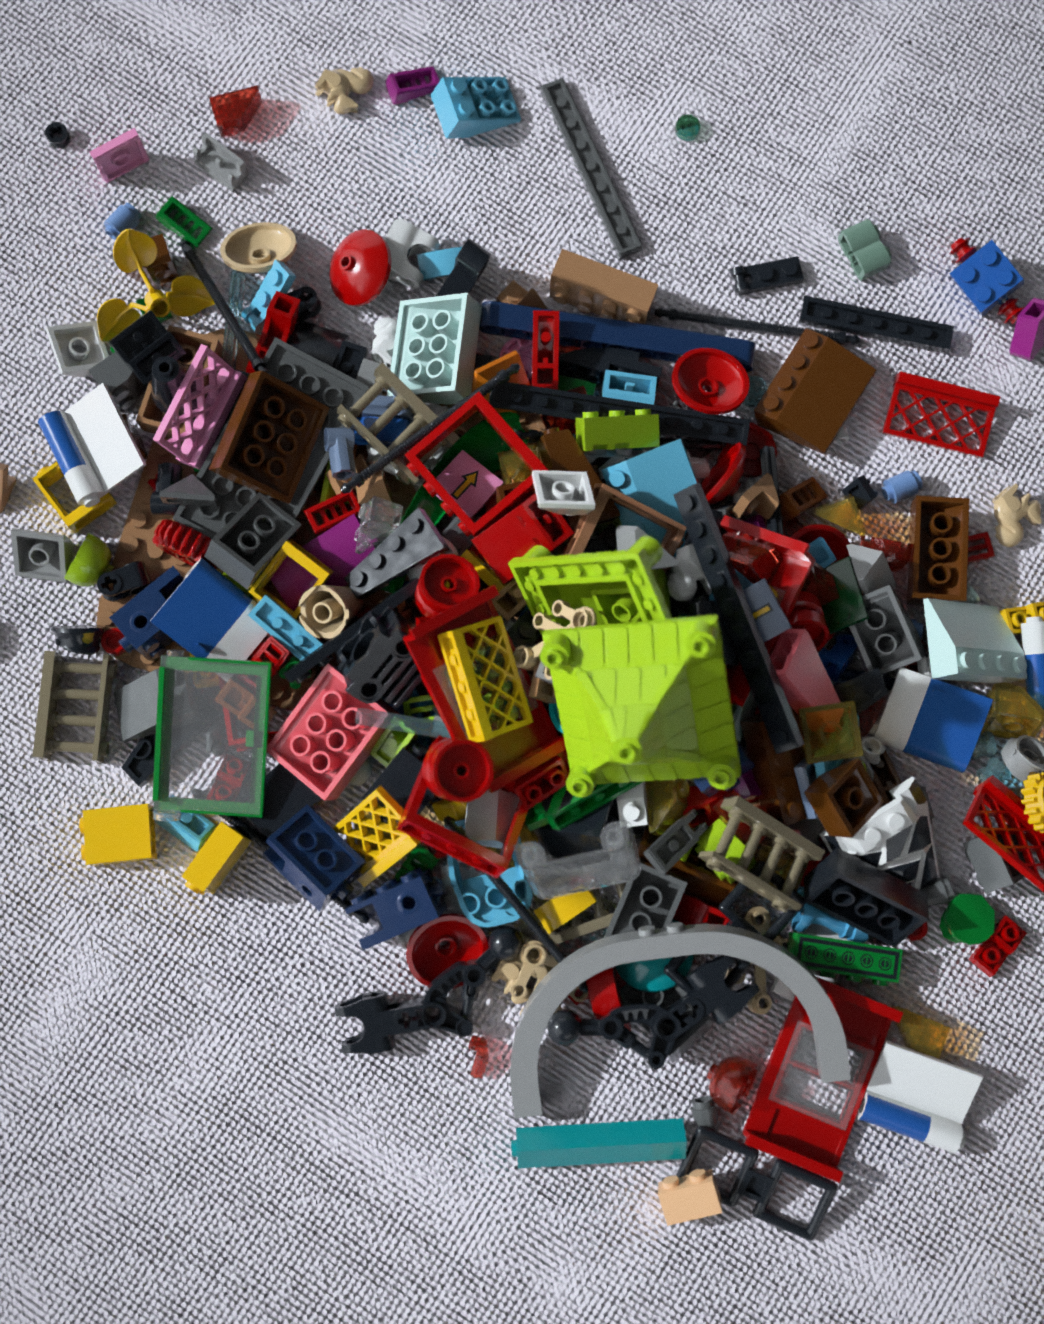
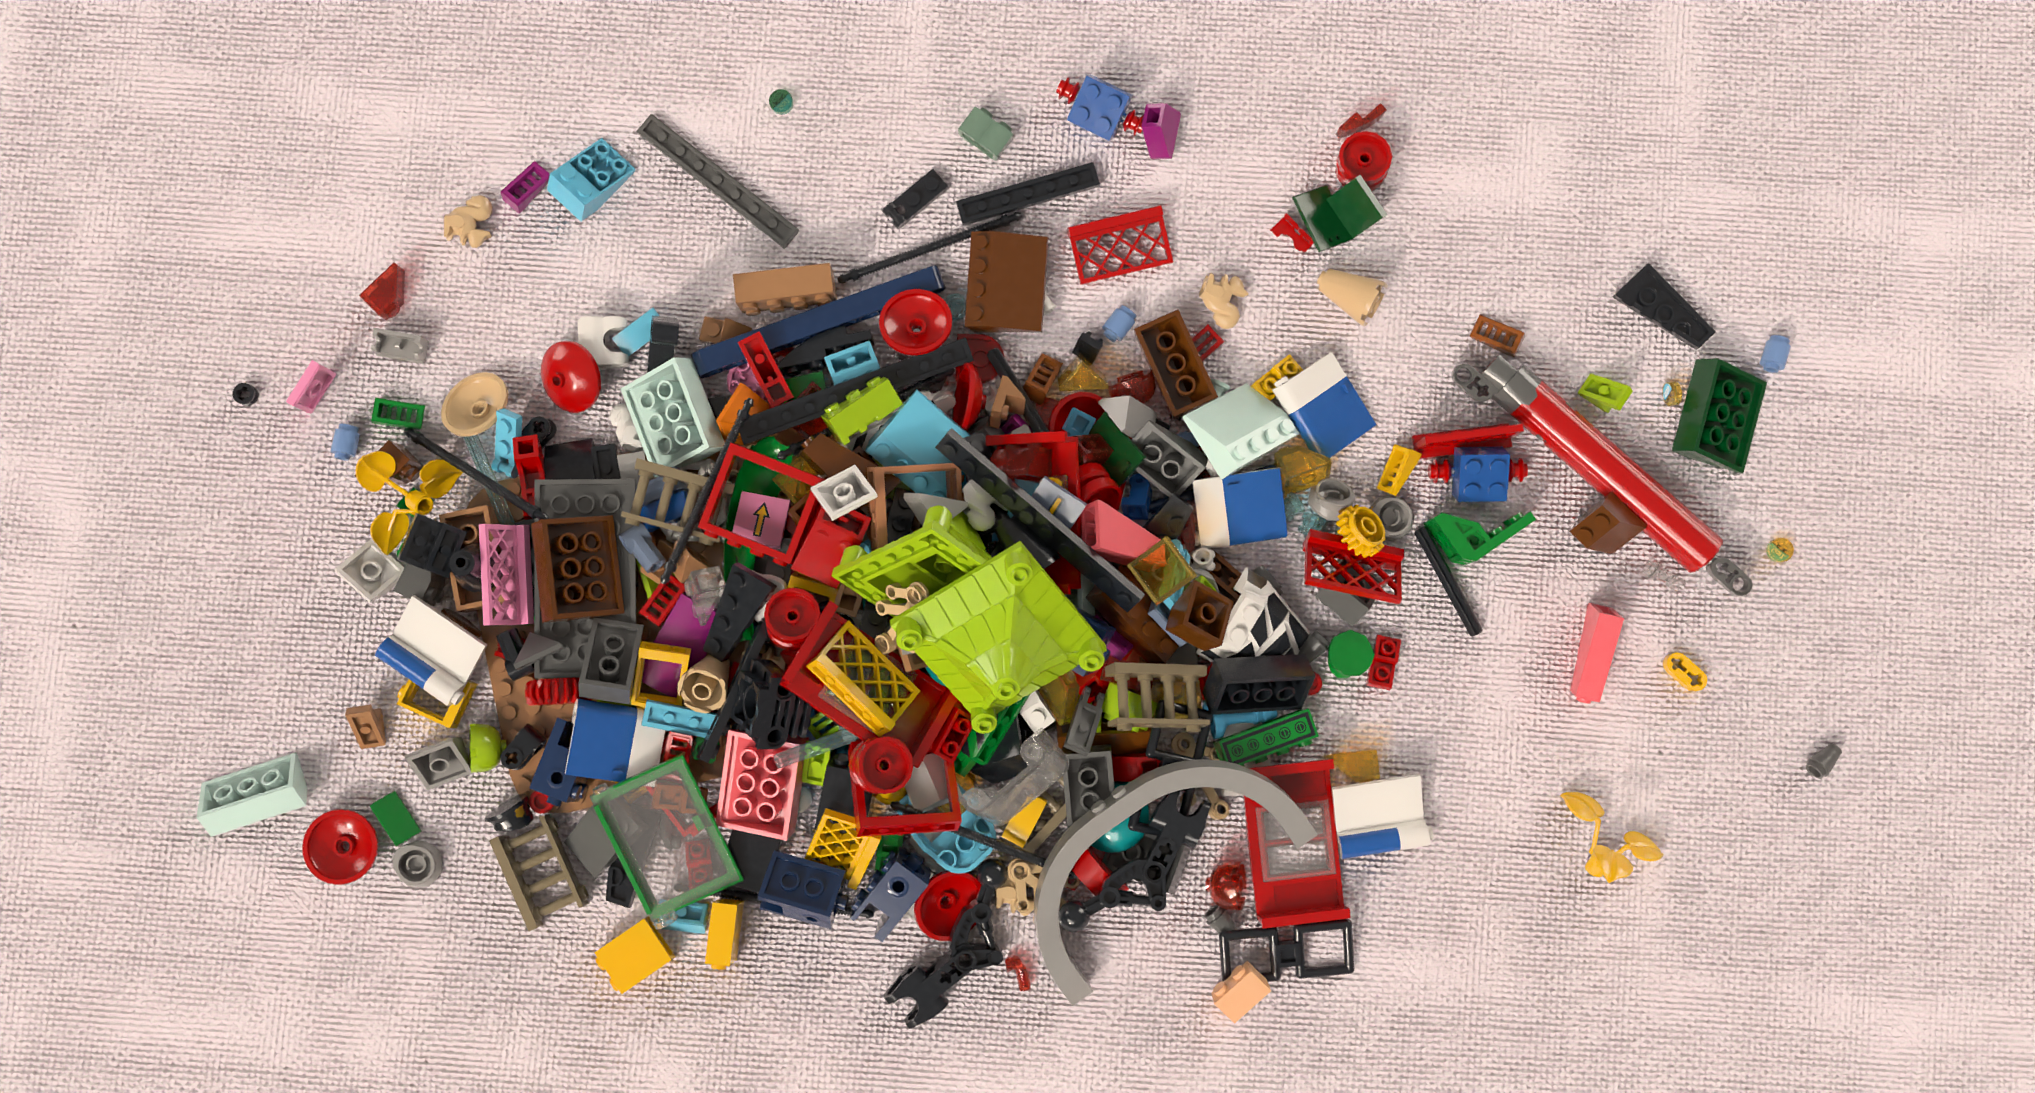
camera: 25 degrees left, 5 degrees up
(599, 1143) = (1149, 988): teal brick -> none

